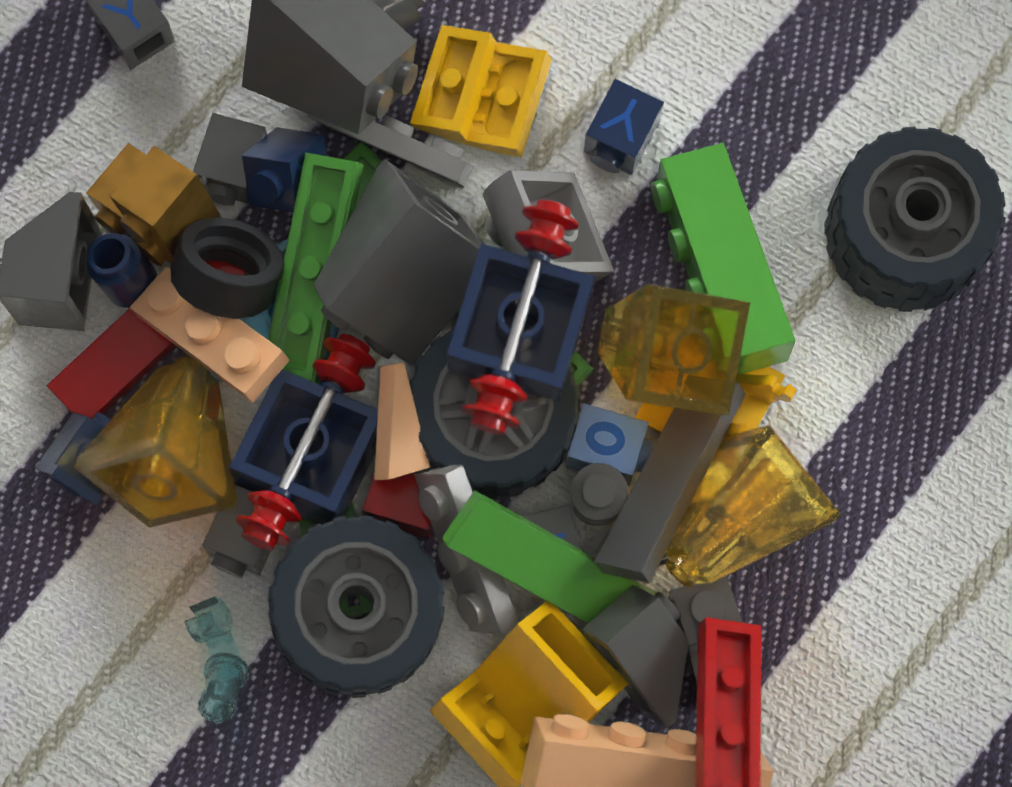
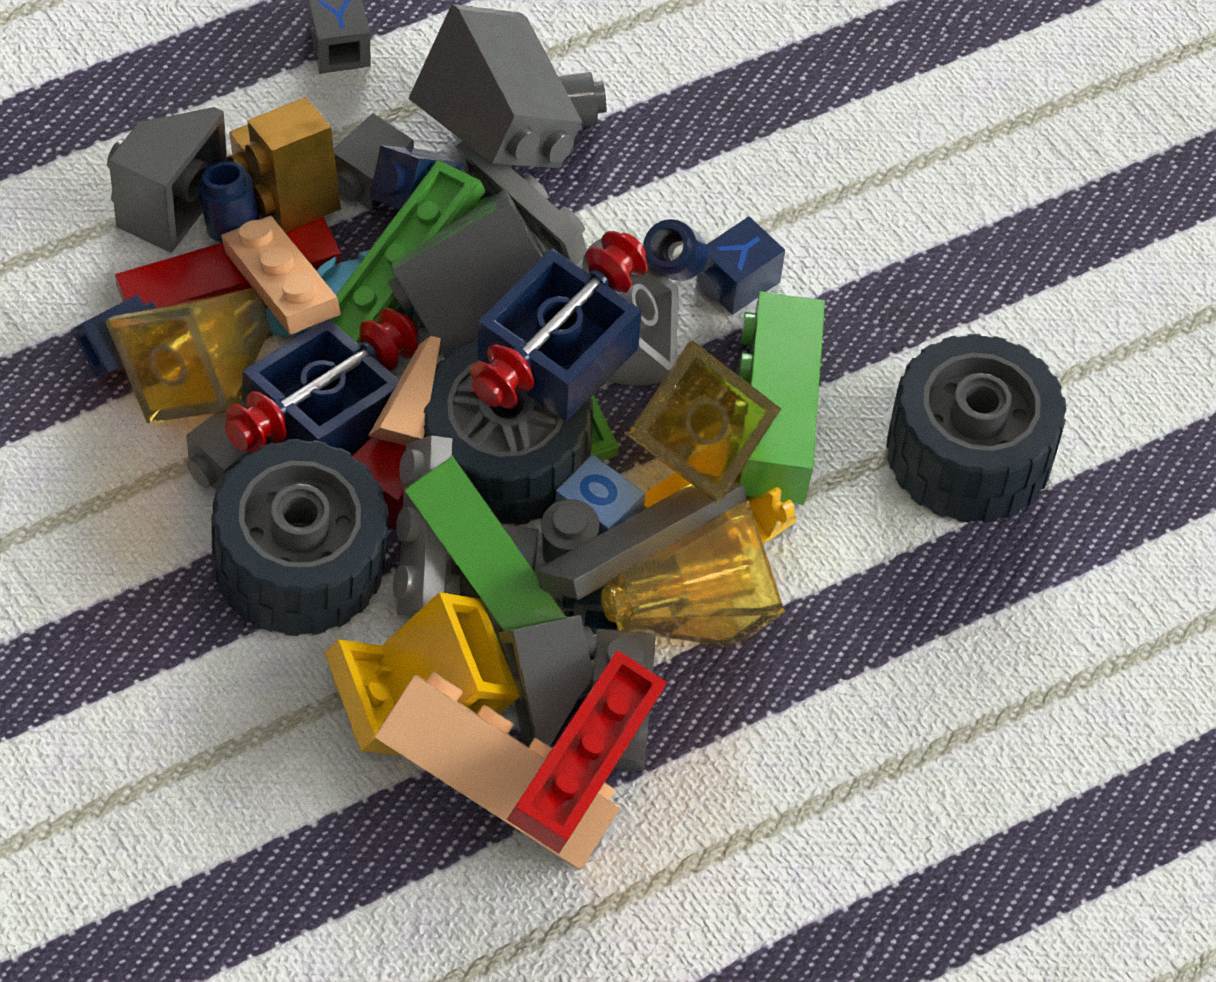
camera: 20 degrees right, 20 degrees down
(222, 292) = (322, 226): black tyre -> none
(224, 668) = (153, 555): clear light blue piece -> none
(481, 91) = (625, 190): yellow slope -> none
(564, 169) = (663, 240): none -> dark blue brick

